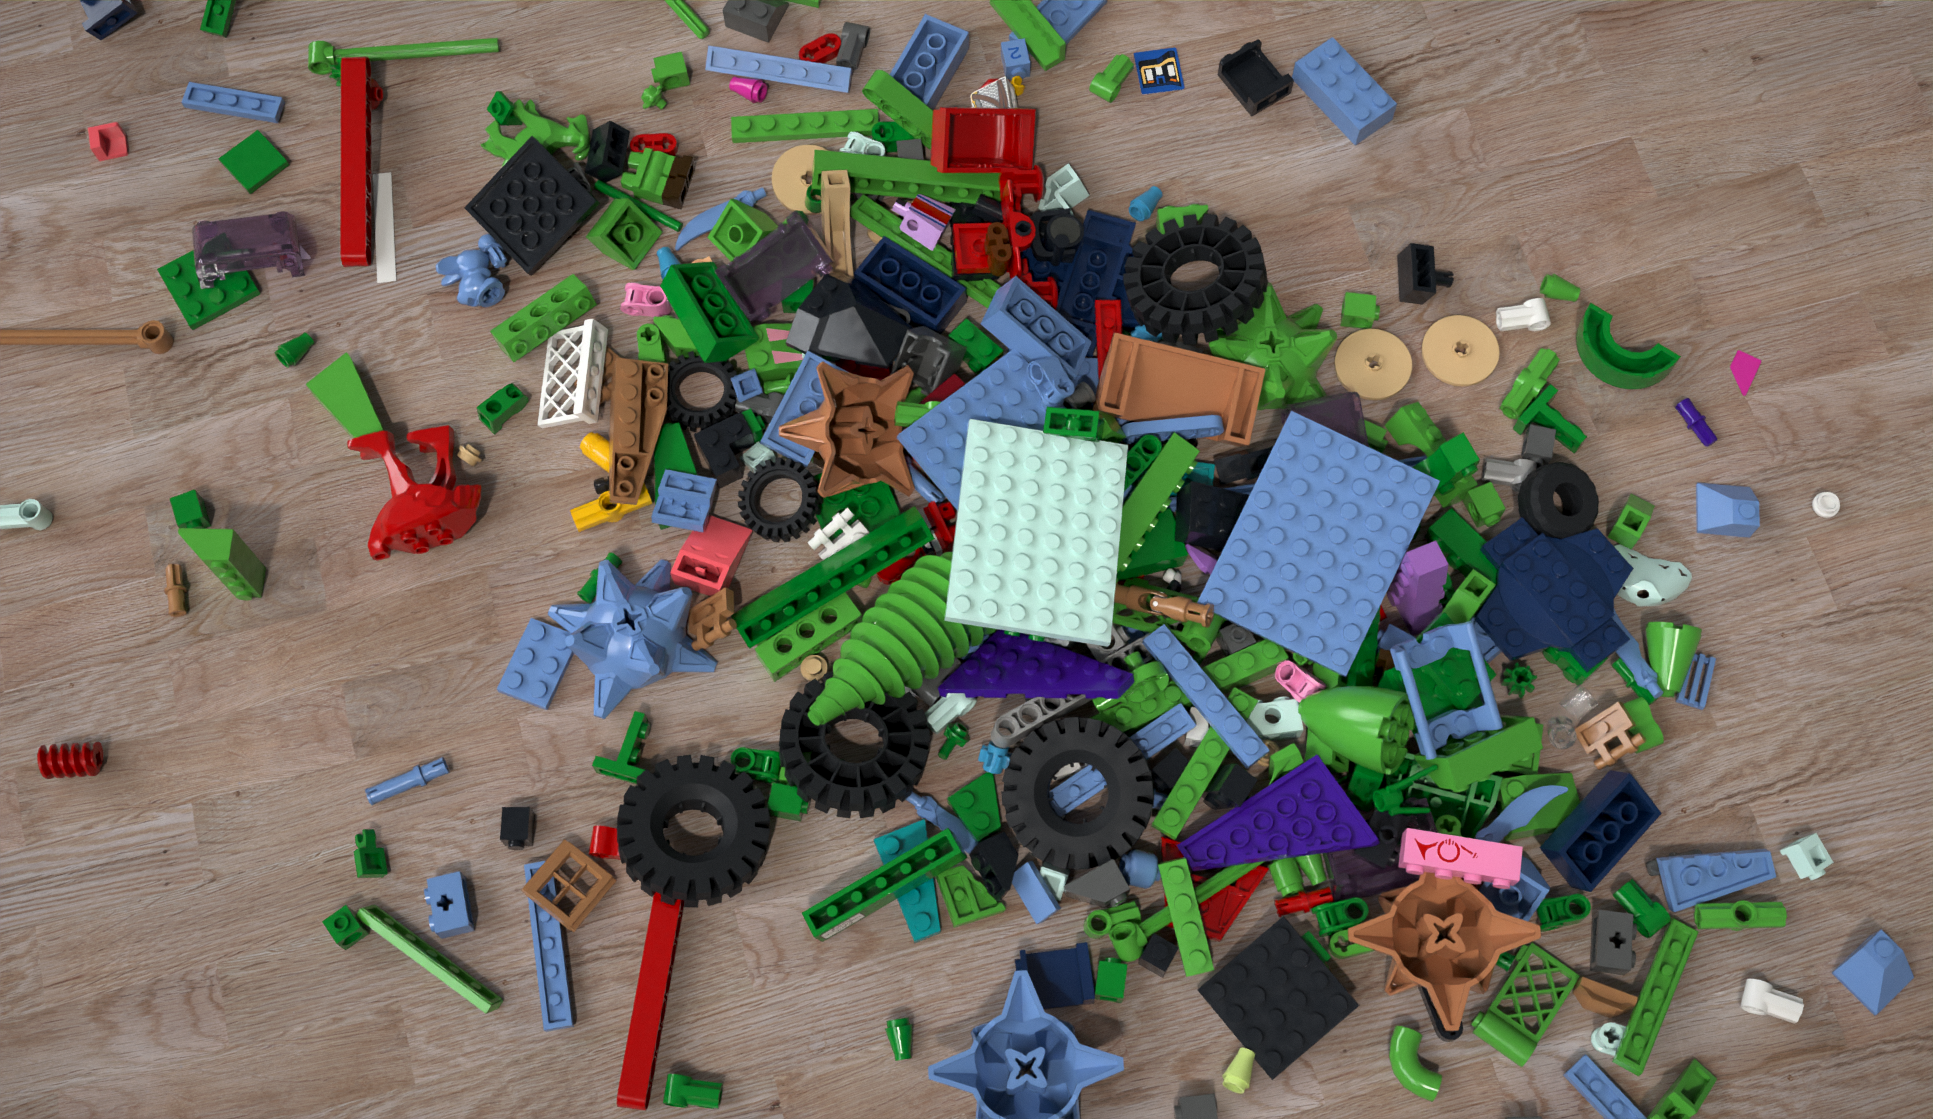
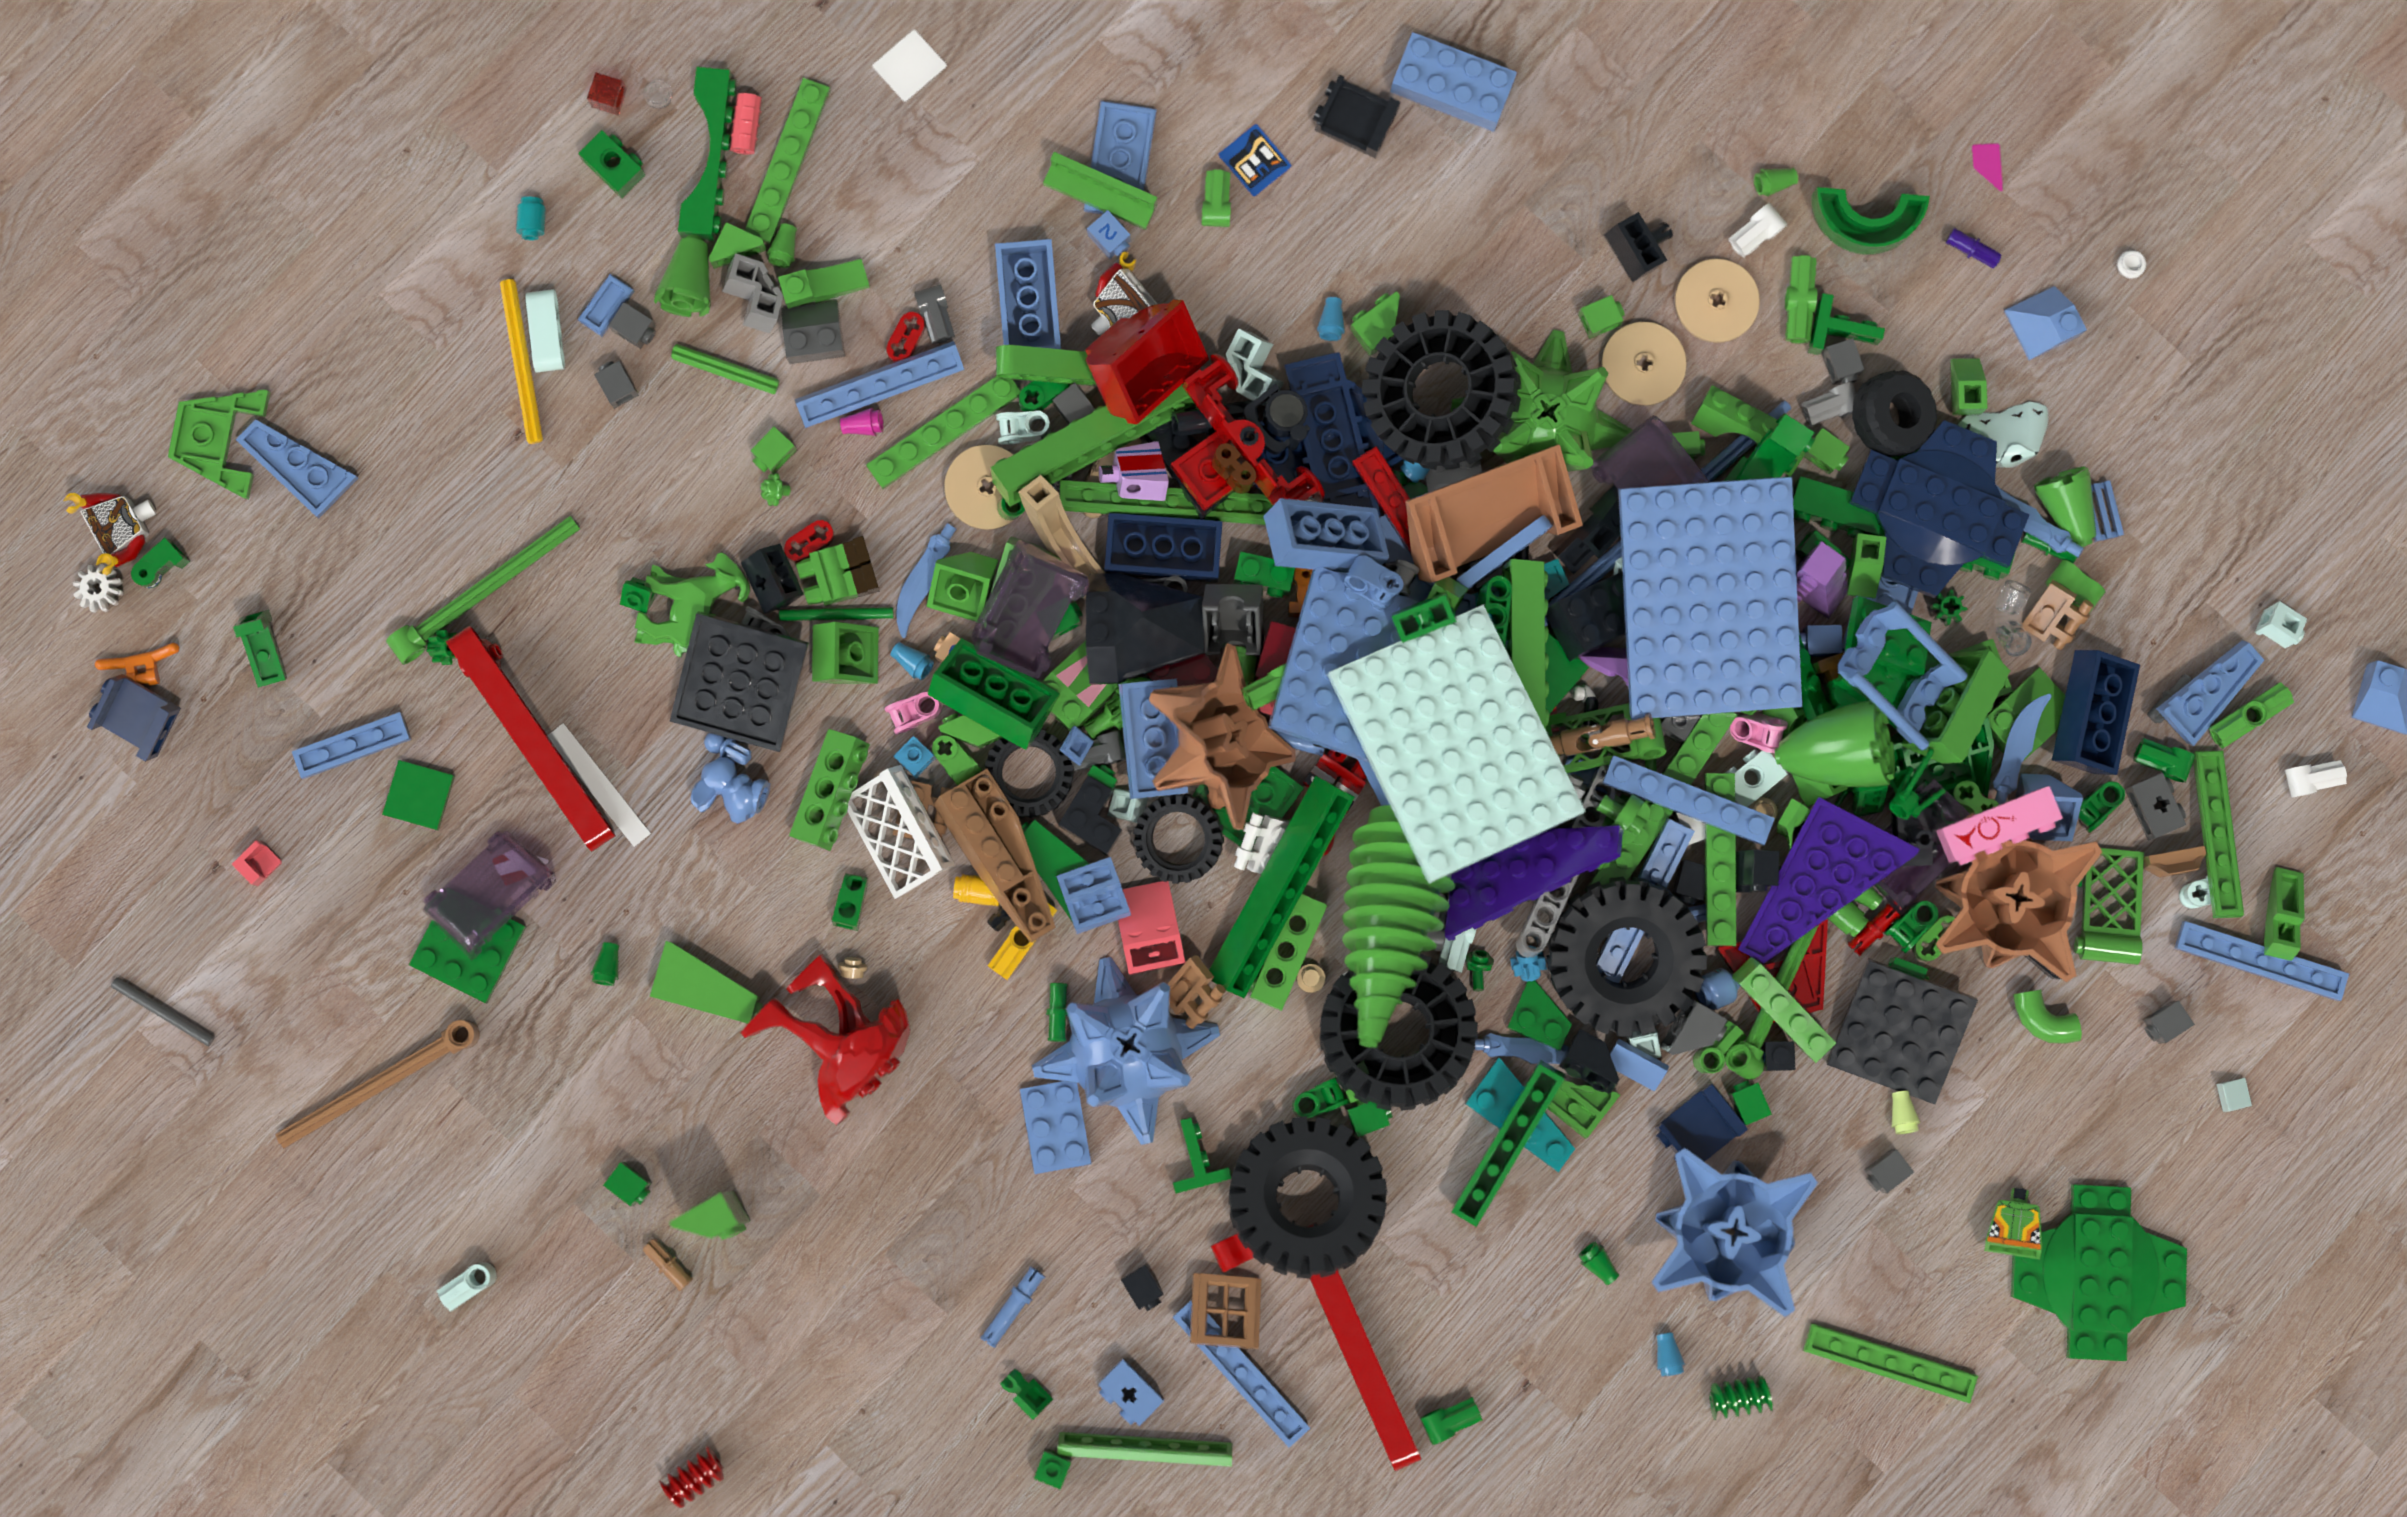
camera: 40 degrees left, 15 degrees up
(622, 331) = (914, 757): none -> dark azure brick

